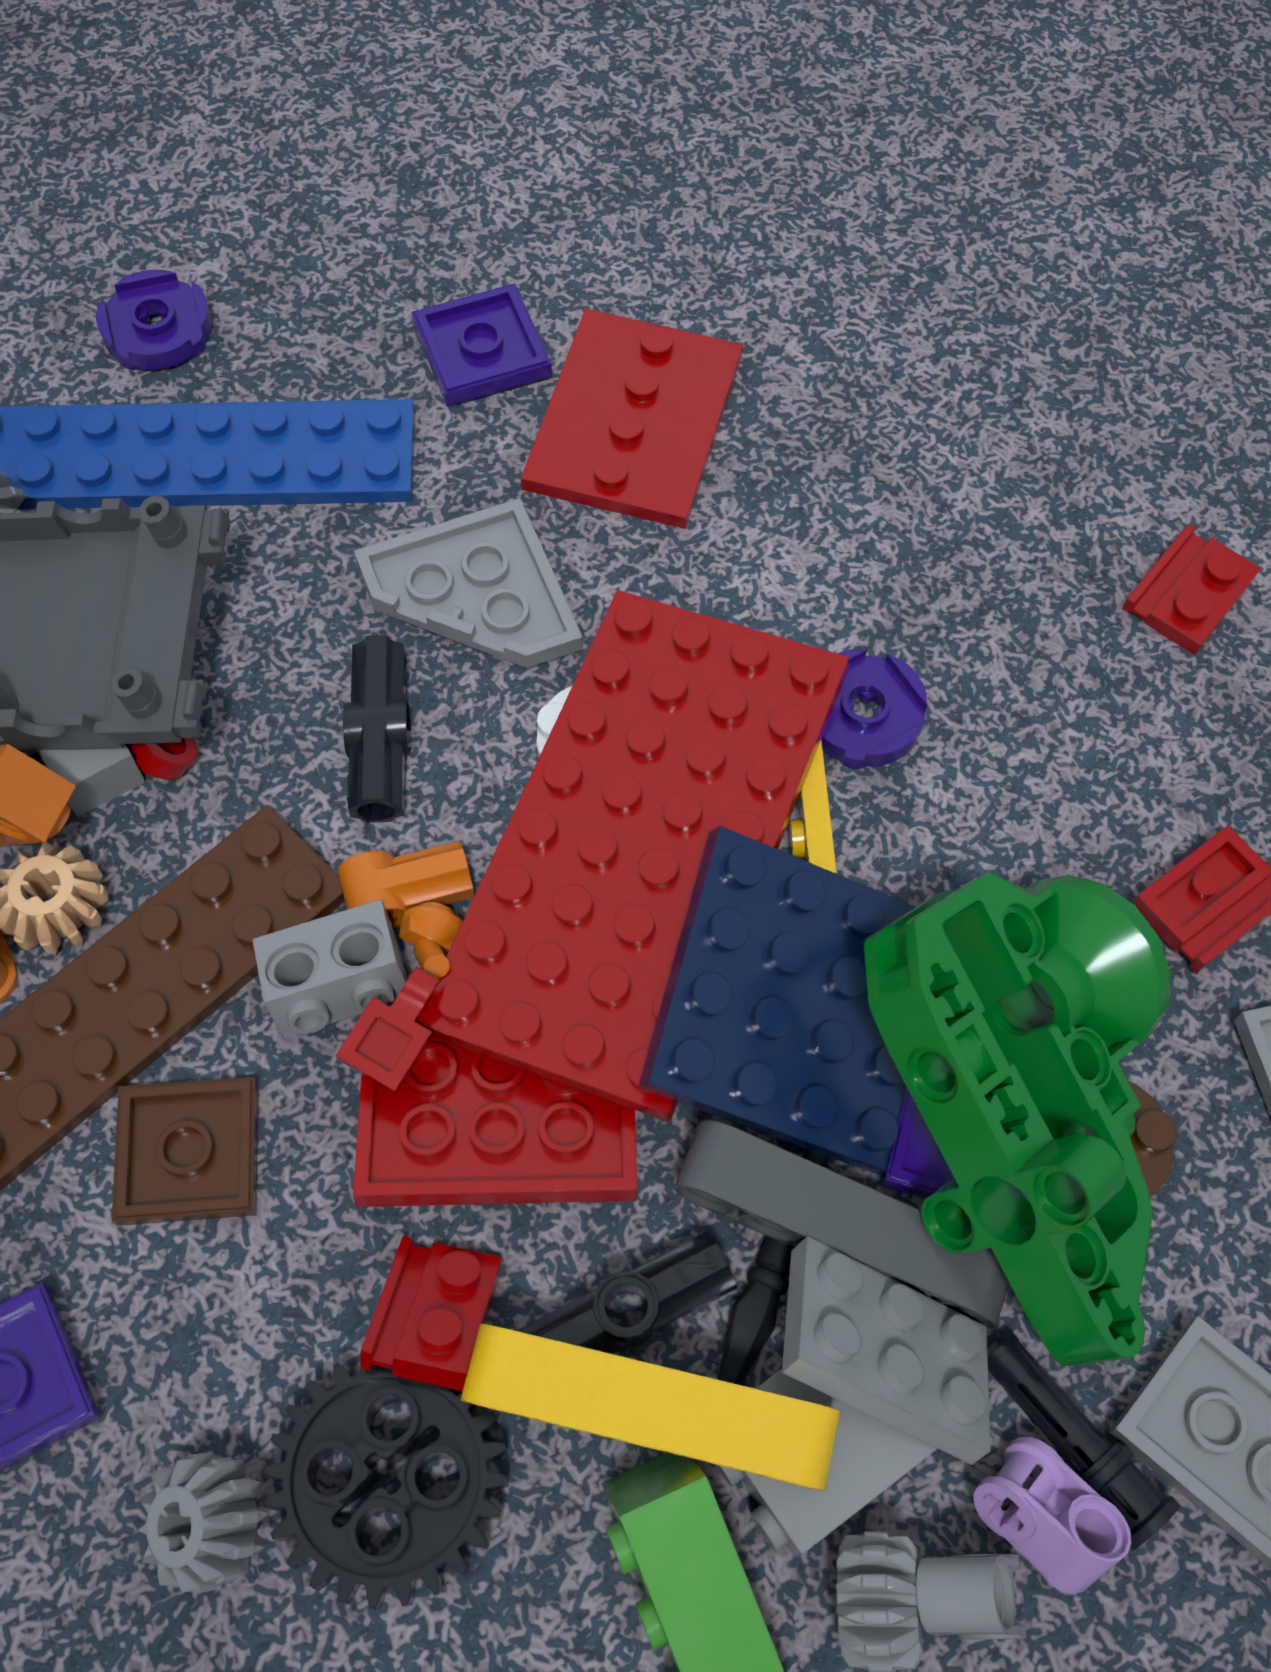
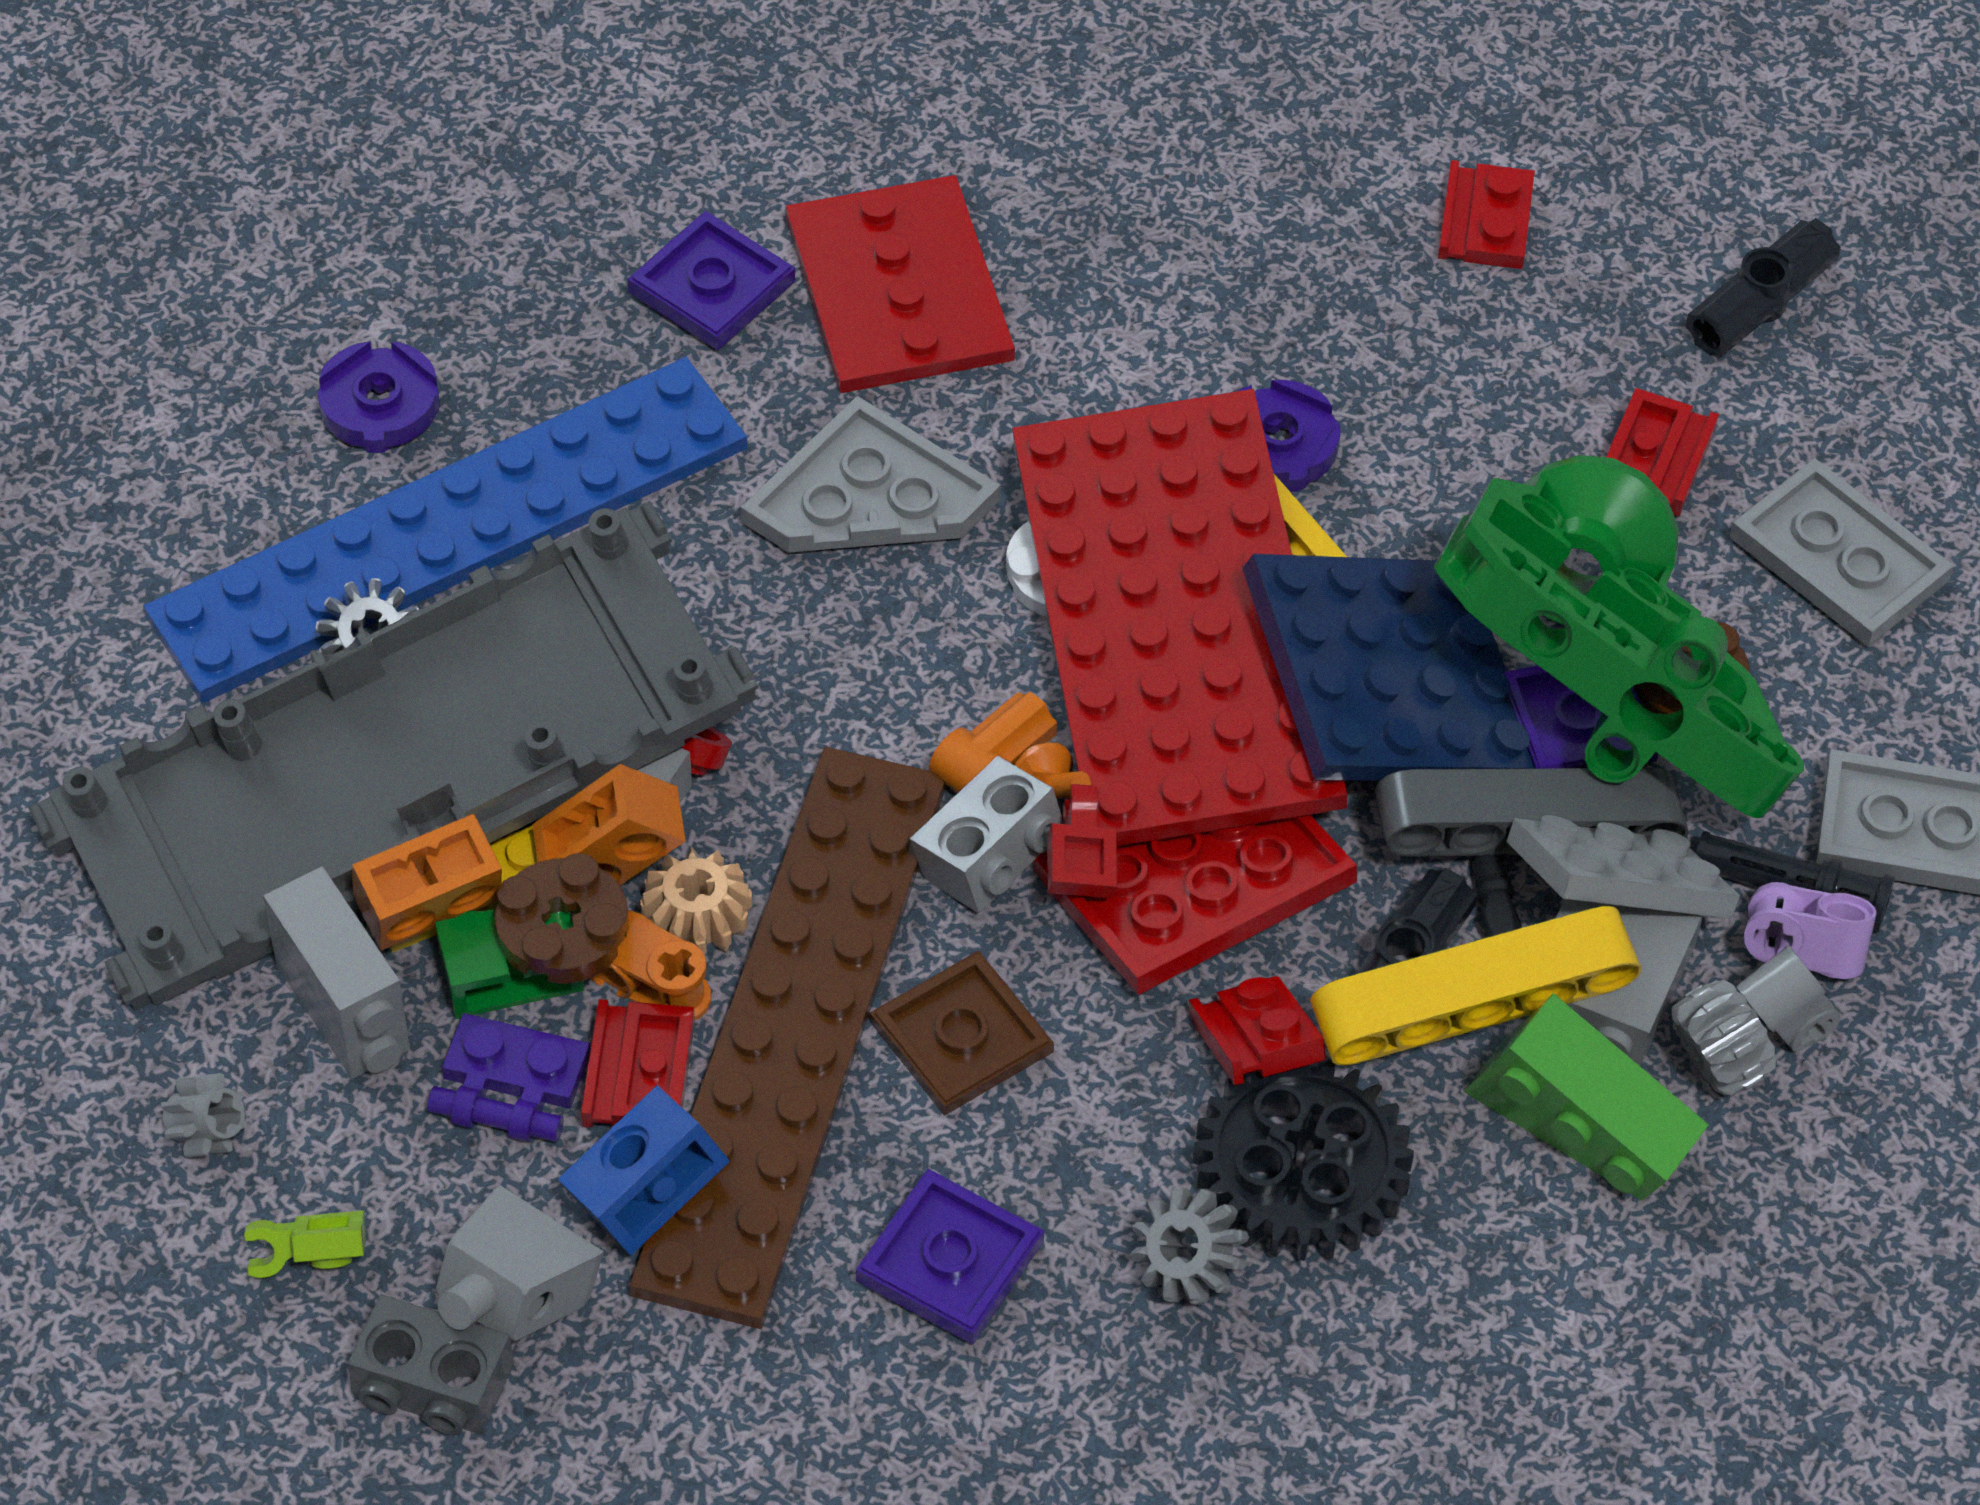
camera: 30 degrees left, 10 degrees down
(377, 730) = (875, 642): black piece -> none

